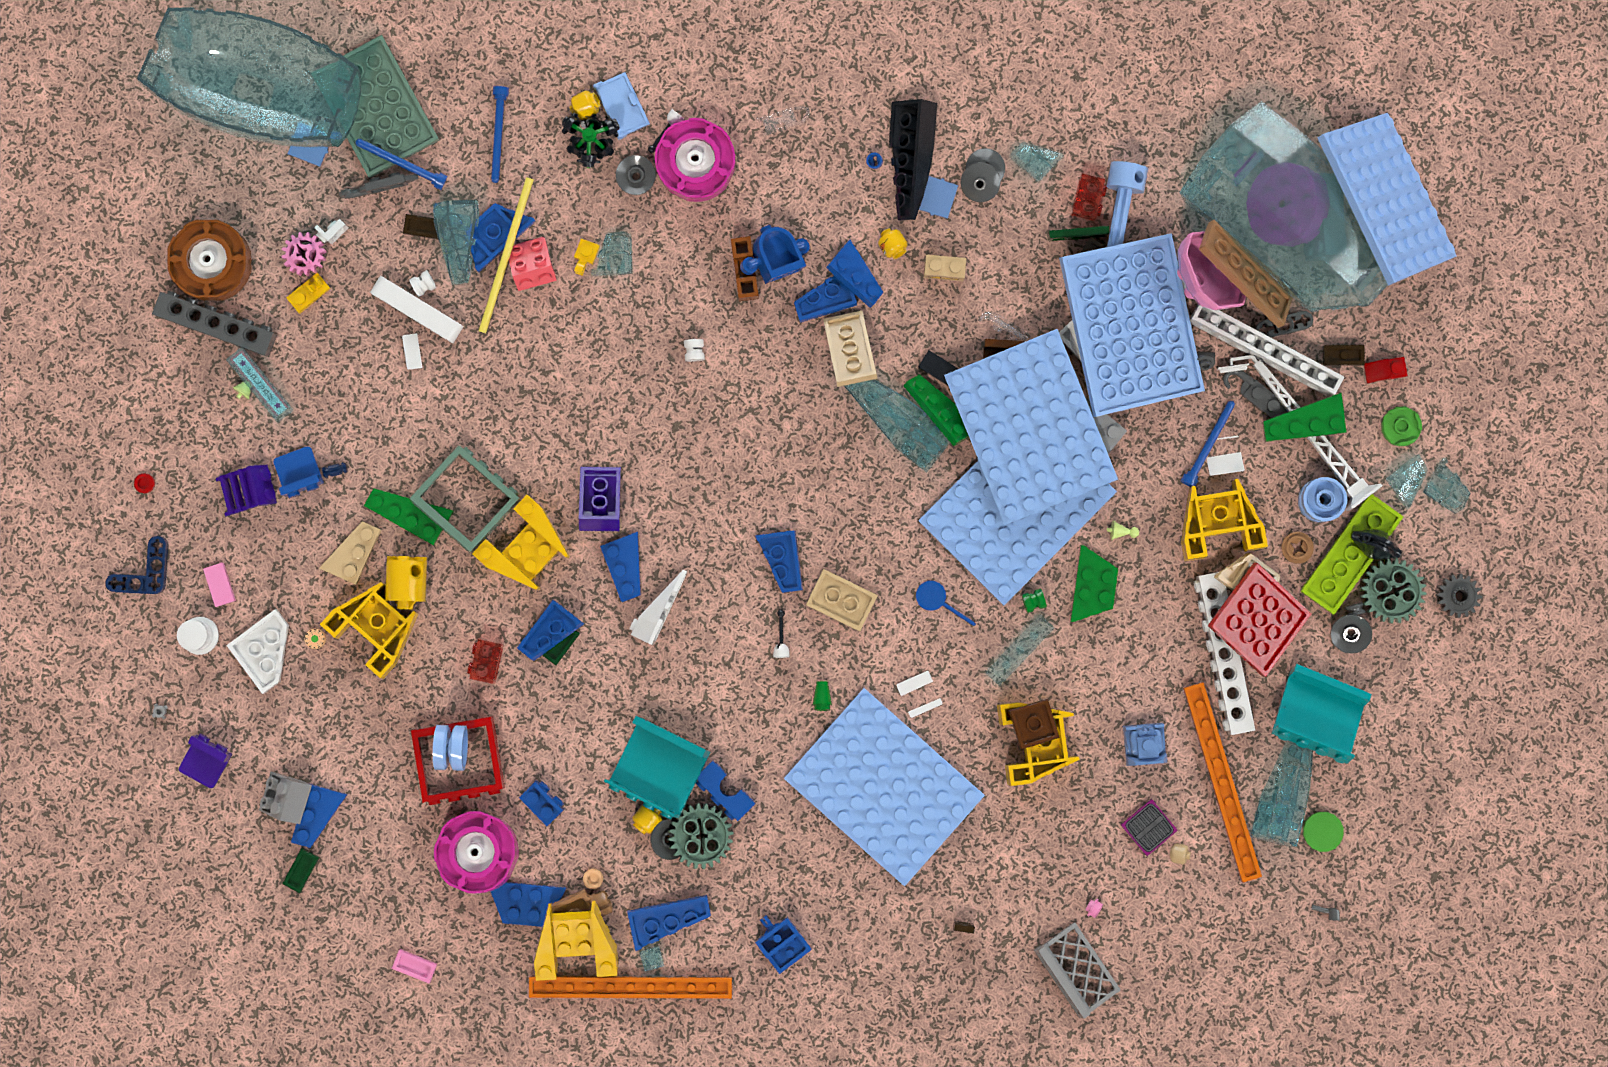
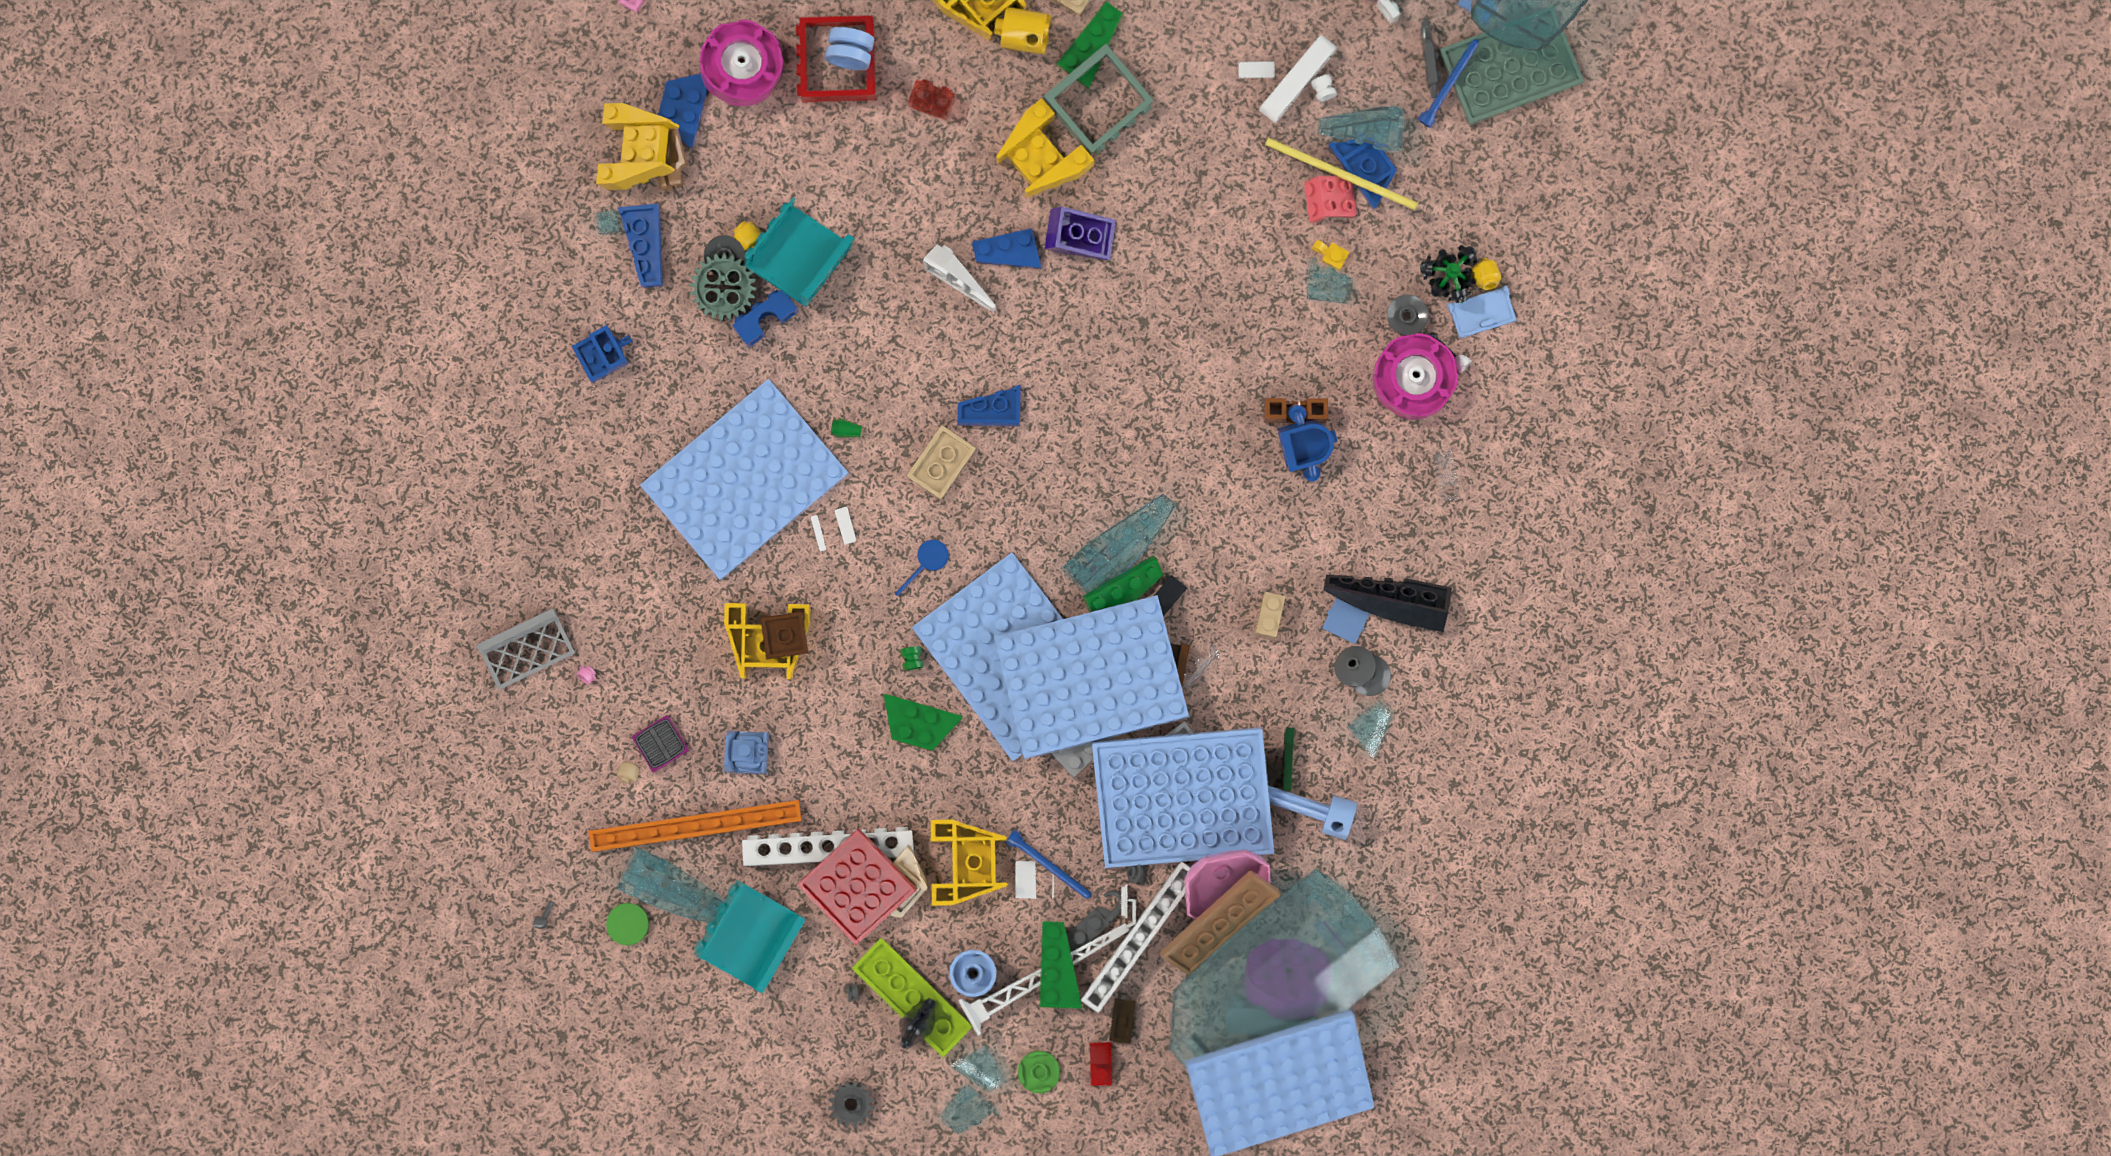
camera: 95 degrees right, 5 degrees down
(420, 226) = (1383, 92): dark brown tile -> none
(500, 94) = (1507, 191): blue piece -> none
(542, 802) = (781, 136): blue bracket -> none
(549, 630) = (954, 167): blue wing -> none
(556, 653) = (939, 175): dark green tile -> none
(593, 878) = (696, 176): light nougat tile -> none
(631, 987) = (581, 199): orange plate -> none
(694, 350) = (1214, 346): white wheel -> none
(781, 650) = (899, 395): hinge -> none
(824, 300) = (1254, 492): blue wing -> none
(850, 348) = (1198, 504): tan plate -> none
(855, 274) = (1275, 523): blue wing -> none
(870, 160) = (1390, 557): blue hinge -> none
(892, 243) = (1302, 566): yellow head -> none
(963, 927) = (588, 538): dark brown tile -> none
(1019, 650) = (863, 637): clear light blue tile -> none
(1083, 196) = (1326, 770): clear red brick -> none
(1119, 530) = (971, 758): yellowish green piece -> none
(1299, 327) = (1156, 969): dark grey beam -> none
(1306, 546) = (916, 941): medium nougat gear -> none
(1351, 643) = (820, 979): dark grey dish -> none
(1400, 607) = (885, 1029): sand green gear -> none

